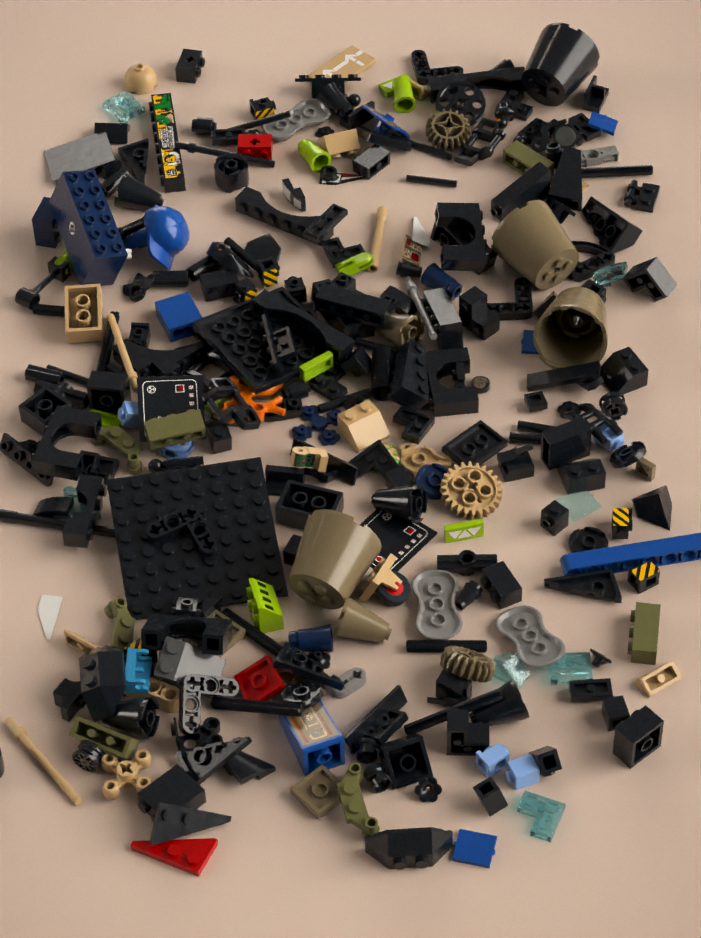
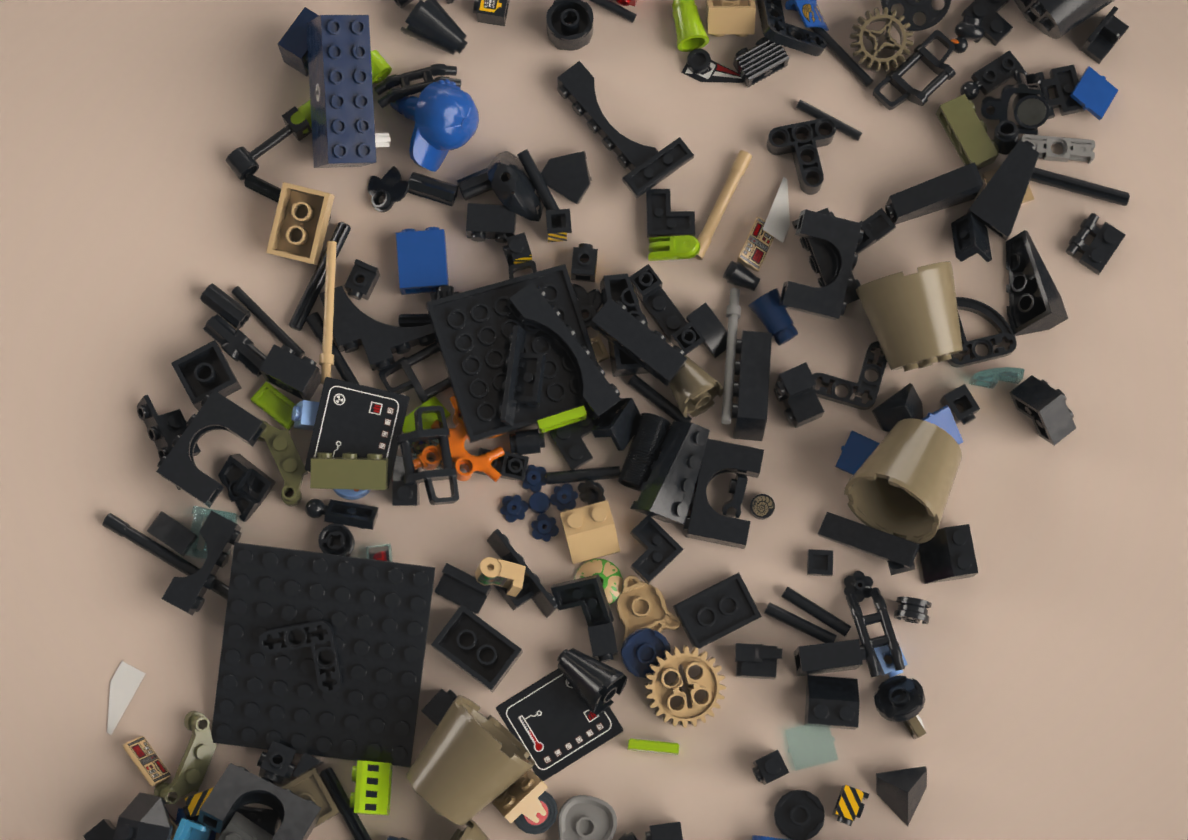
camera: 15 degrees right, 30 degrees up
(294, 196) = (639, 93): black slope -> none
(420, 193) = (804, 147): none -> black beam
(466, 562) = (655, 806): black piece -> none
(491, 222) = (874, 229): none -> black slope

